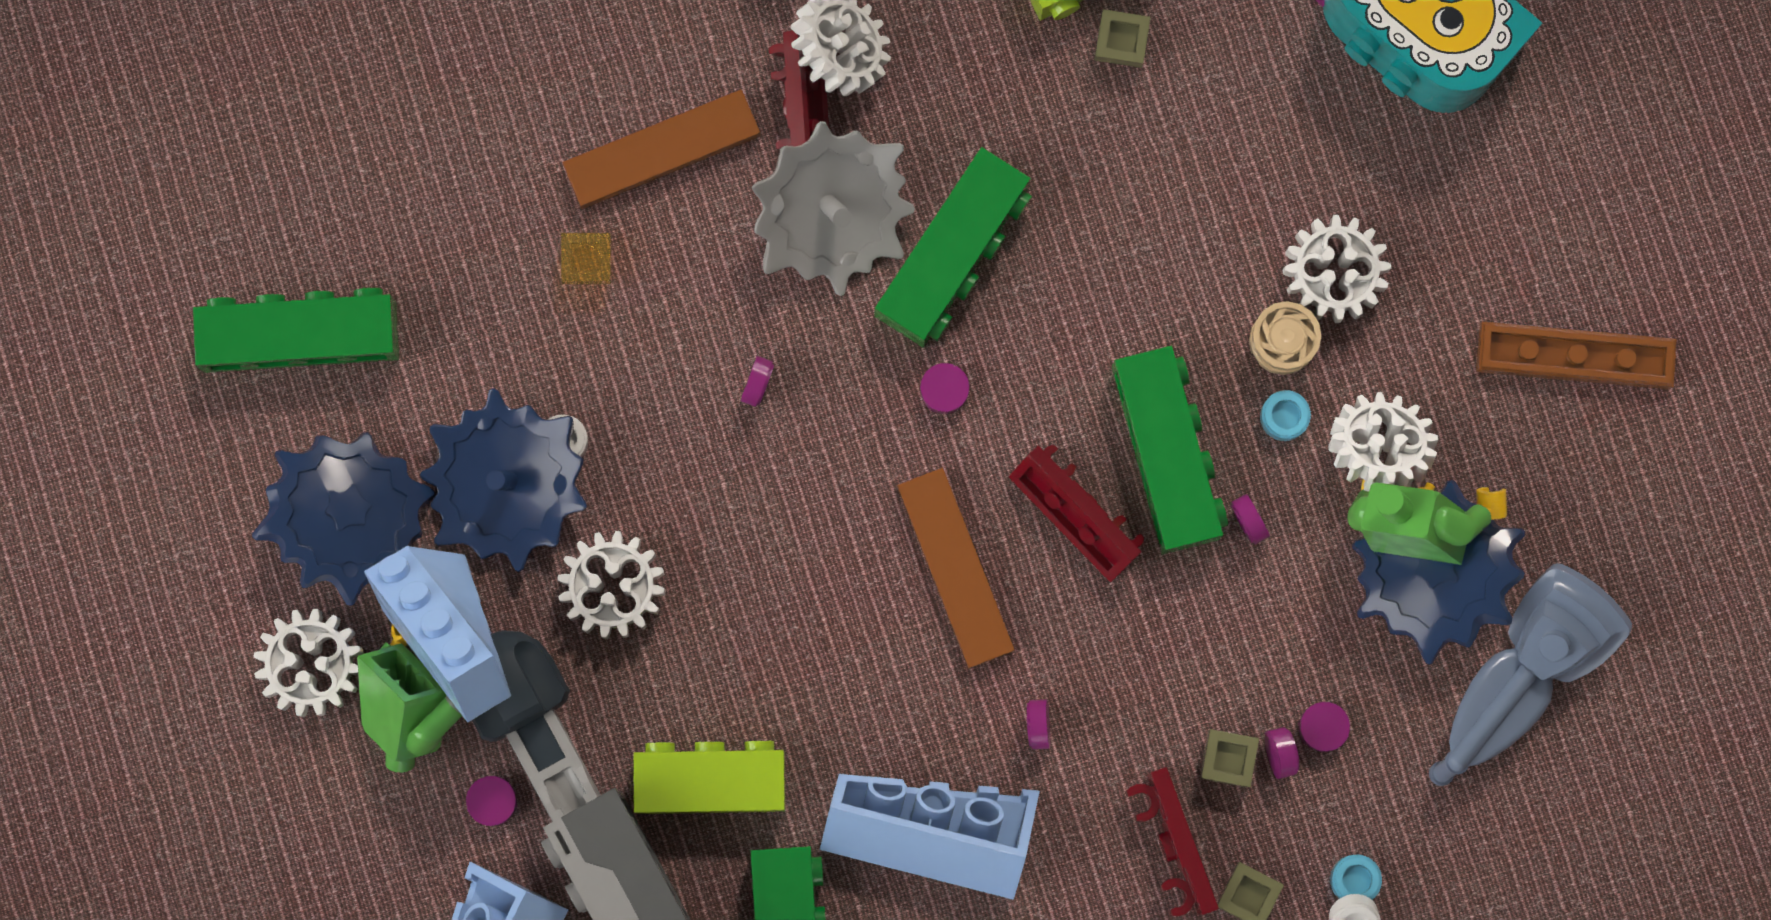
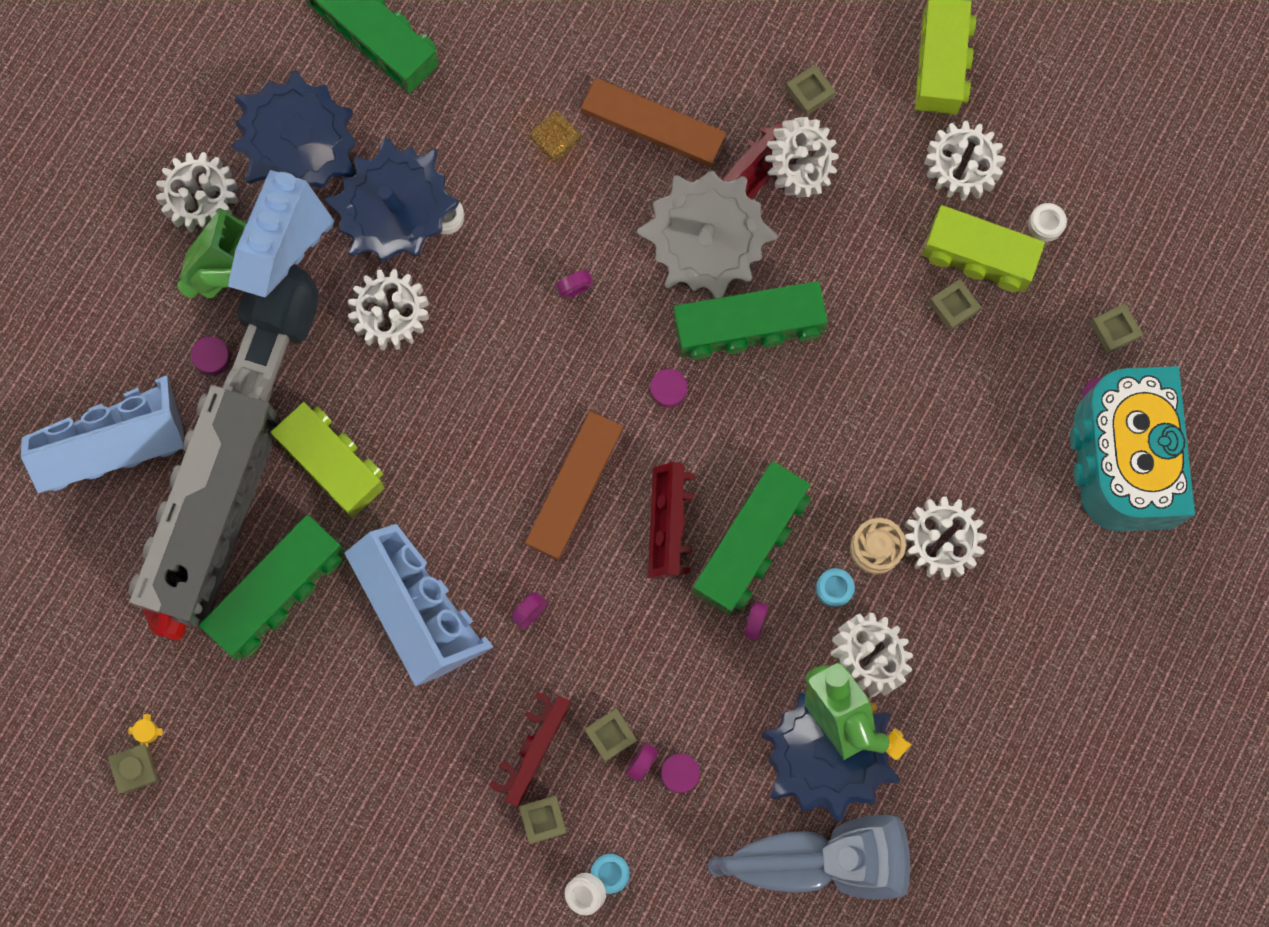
camera: 45 degrees right, 5 degrees down
(1576, 355) = (1030, 720): dark orange tile -> none

